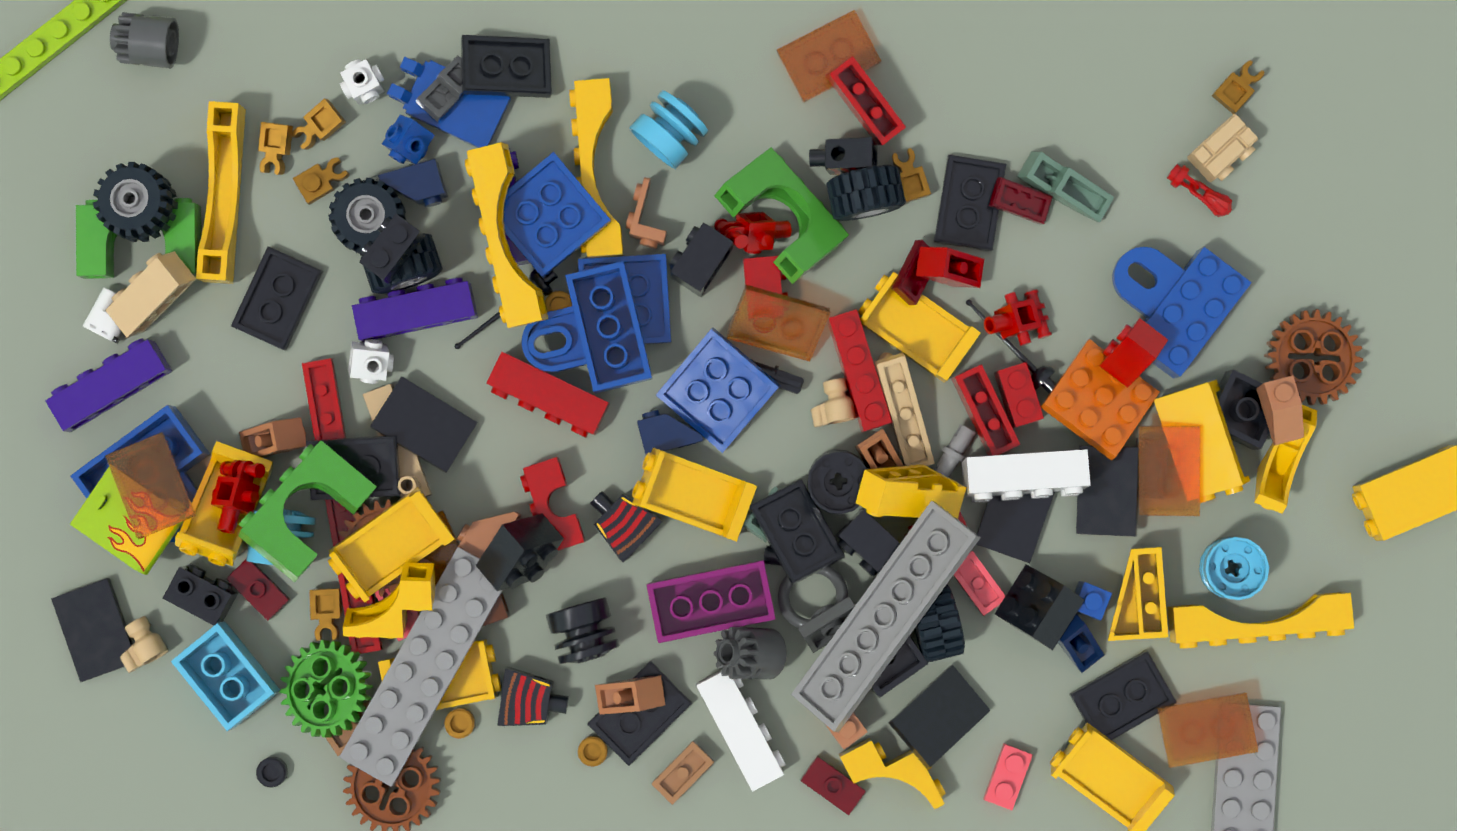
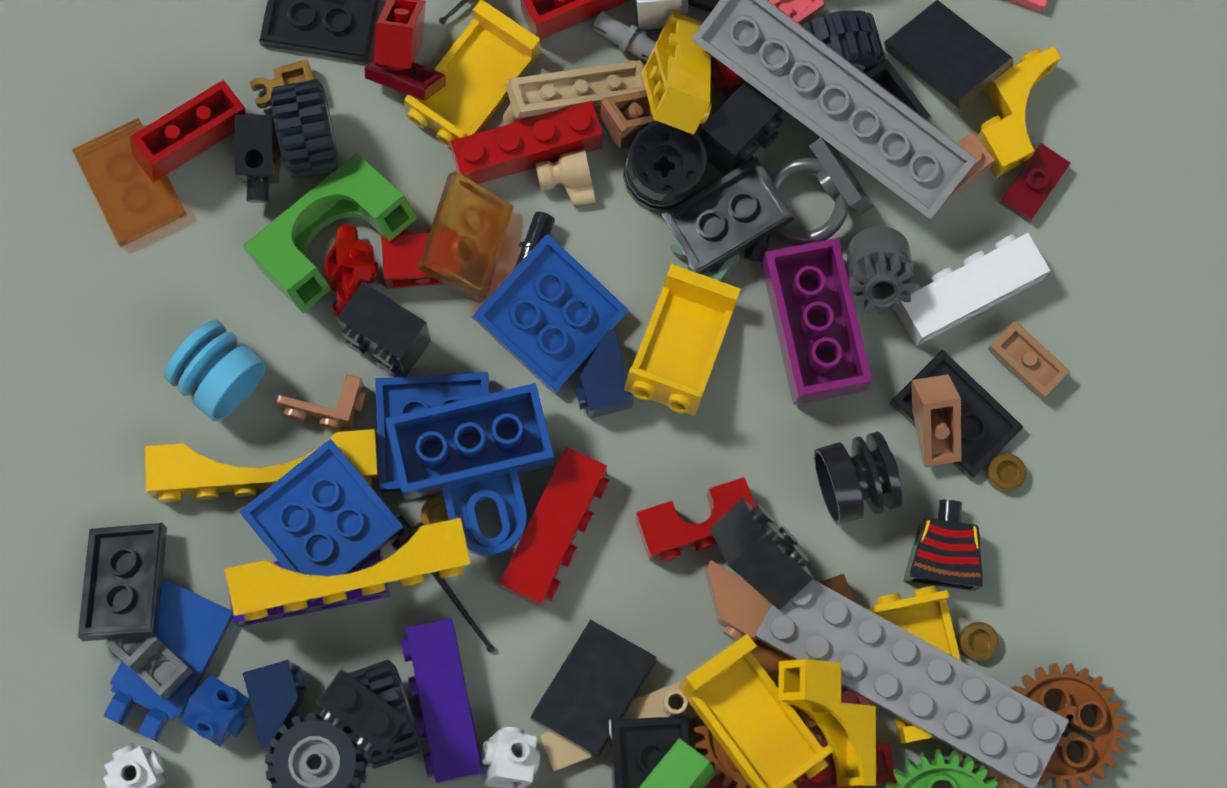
camera: 90 degrees left, 10 degrees down
(623, 524) = (720, 430): torso -> none

